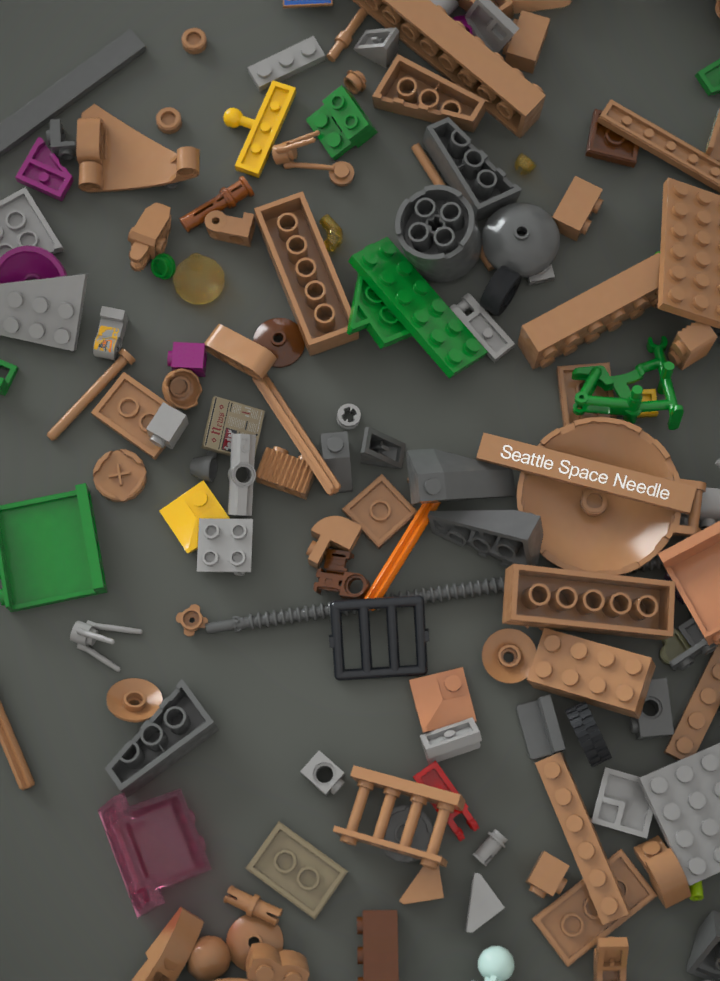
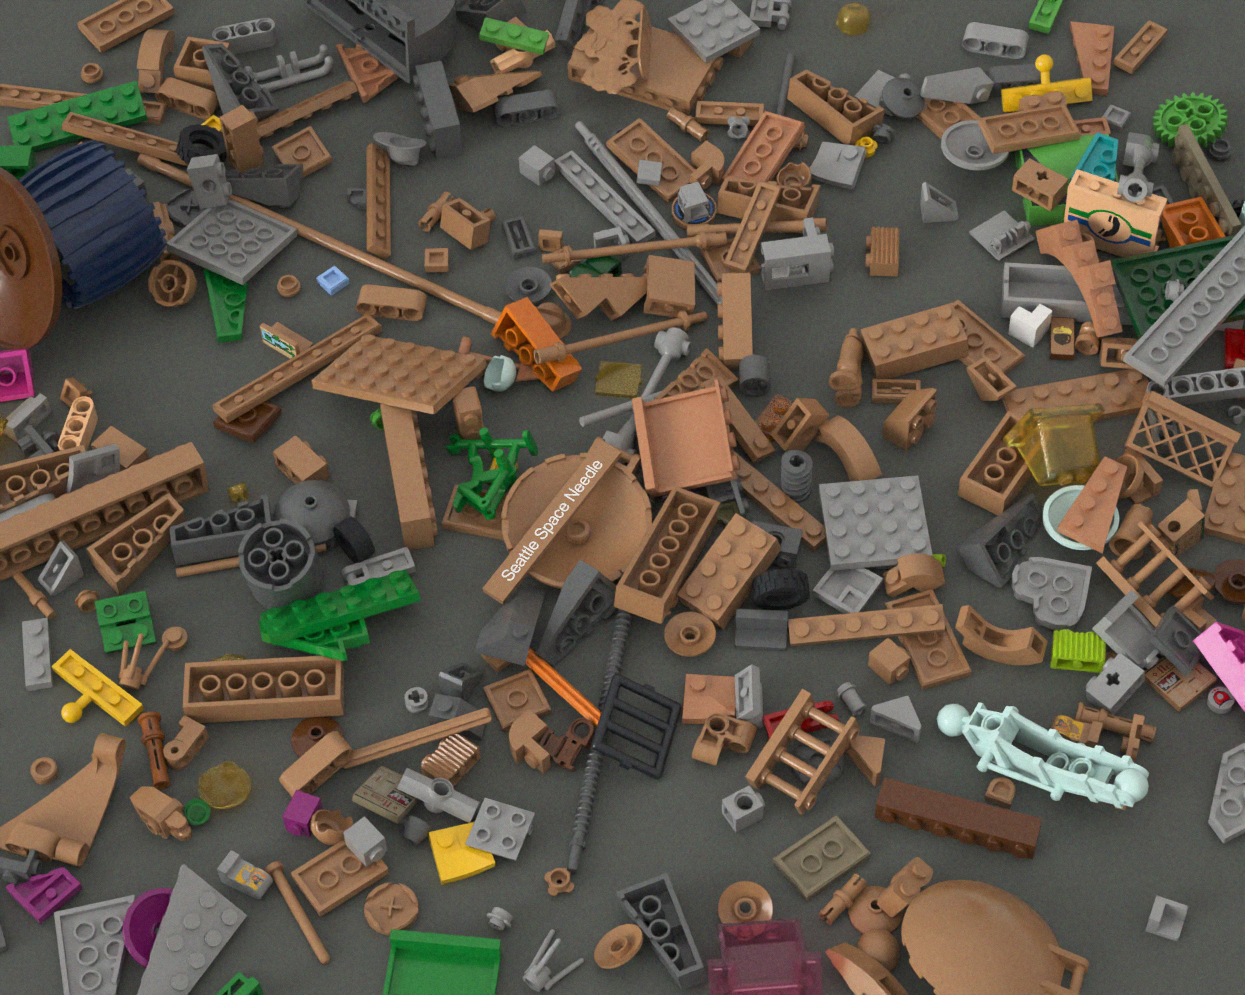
camera: 70 degrees left, 20 degrees down
(134, 578) = (499, 919): none -> light grey plate
(212, 810) = (741, 892): none -> medium nougat dish
(404, 738) = (734, 735): none -> medium nougat piece

